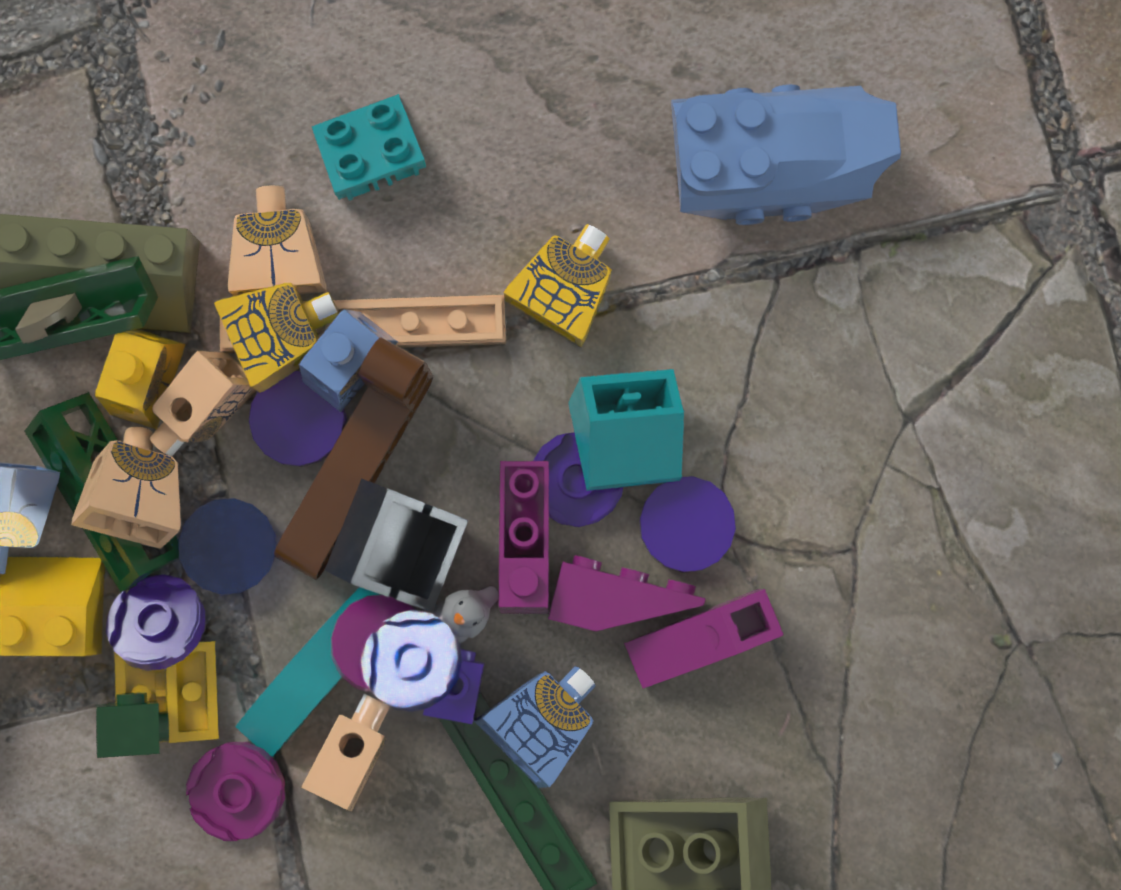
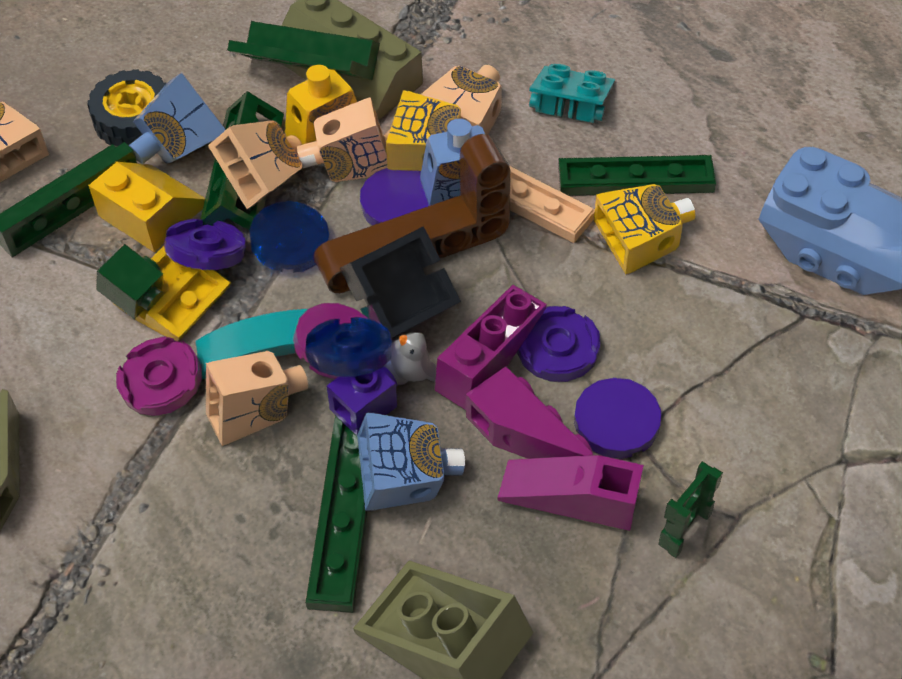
camera: 40 degrees right, 30 degrees down
(44, 314) = (297, 43): dark tan tile -> none
(510, 216) = (610, 174): none -> dark green tile
(628, 428) = (620, 317): teal slope -> none
(822, 593) = (693, 502): none -> dark green piece

